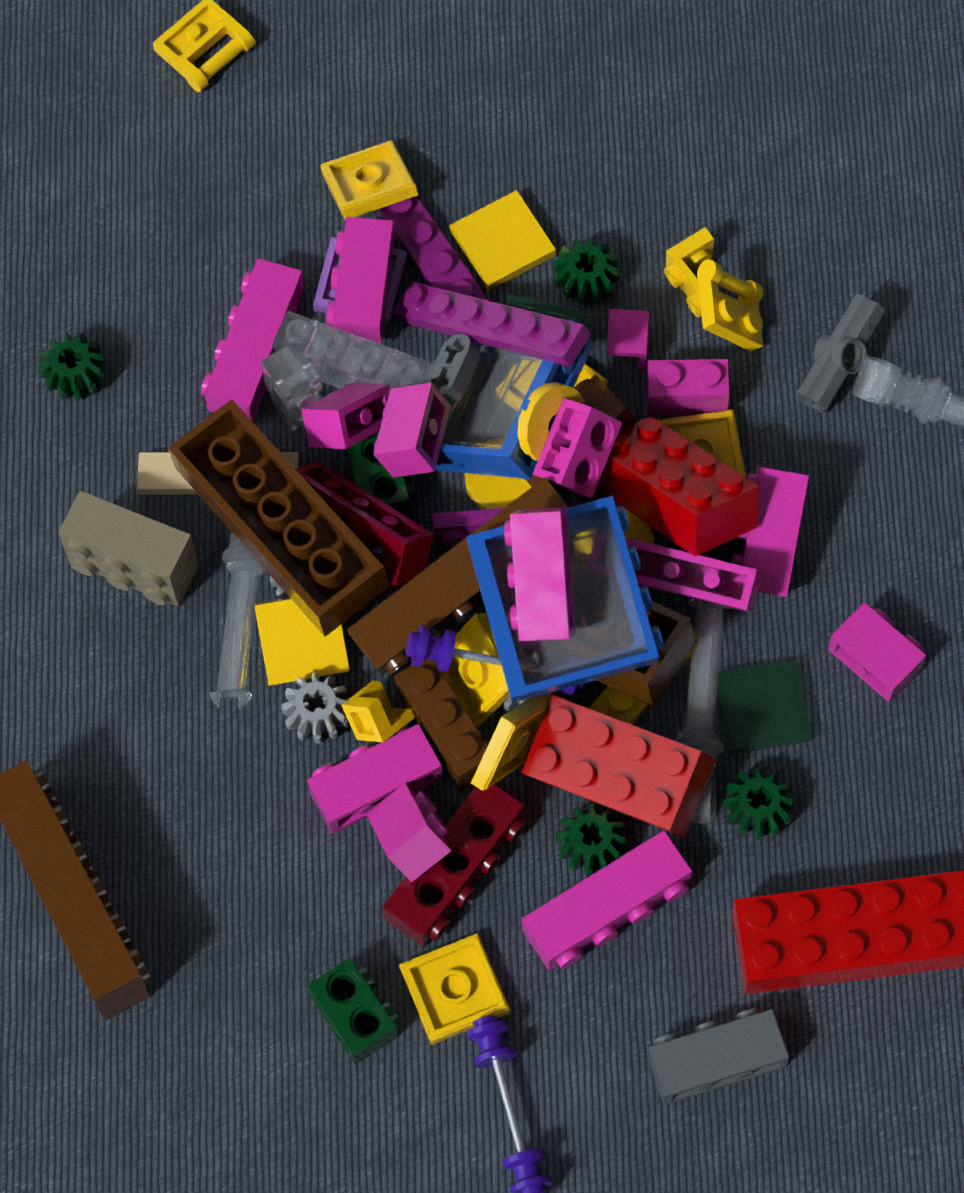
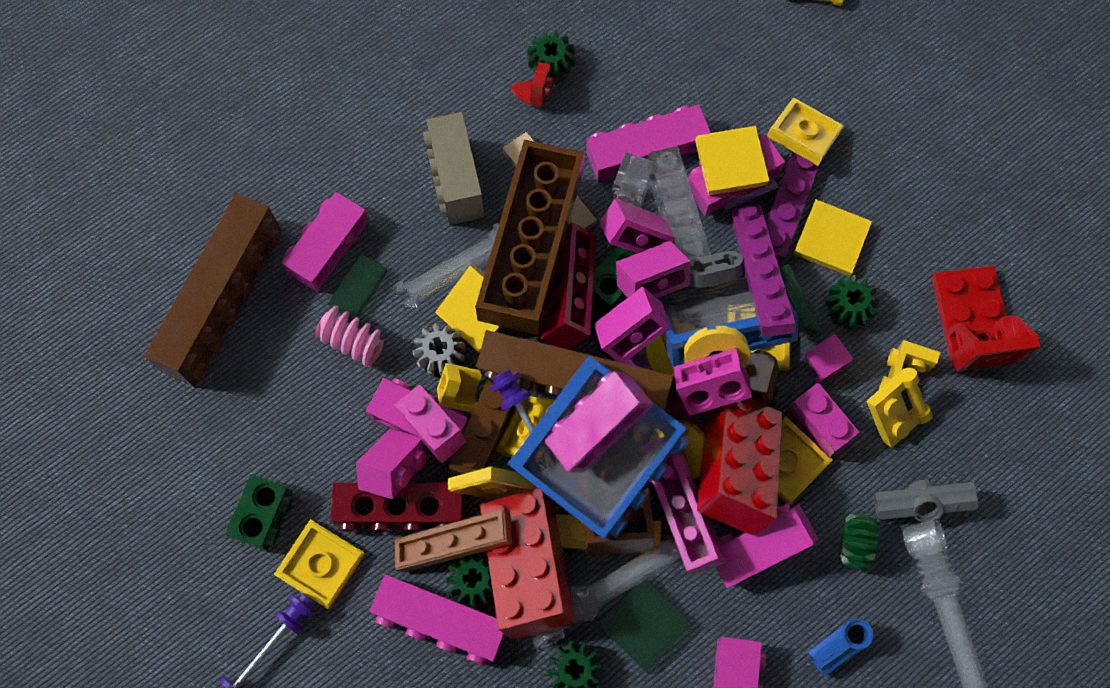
camera: 50 degrees right, 5 degrees up
(95, 743) = (325, 241): none -> dark pink brick
(101, 410) = (535, 91): none -> red plate
(175, 747) = (358, 286): none -> clear green tile
(227, 786) = (349, 337): none -> bright pink piece
(351, 268) = (732, 160): none -> yellow tile
(401, 756) = (430, 423): none -> dark pink brick
(455, 486) = (632, 325): none -> dark pink brick
(539, 825) = (453, 541): none -> tile
(698, 174) = (977, 323): none -> red bracket
(833, 442) = (858, 541): none -> dark green gear
(921, 536) = (838, 648): none -> blue piece

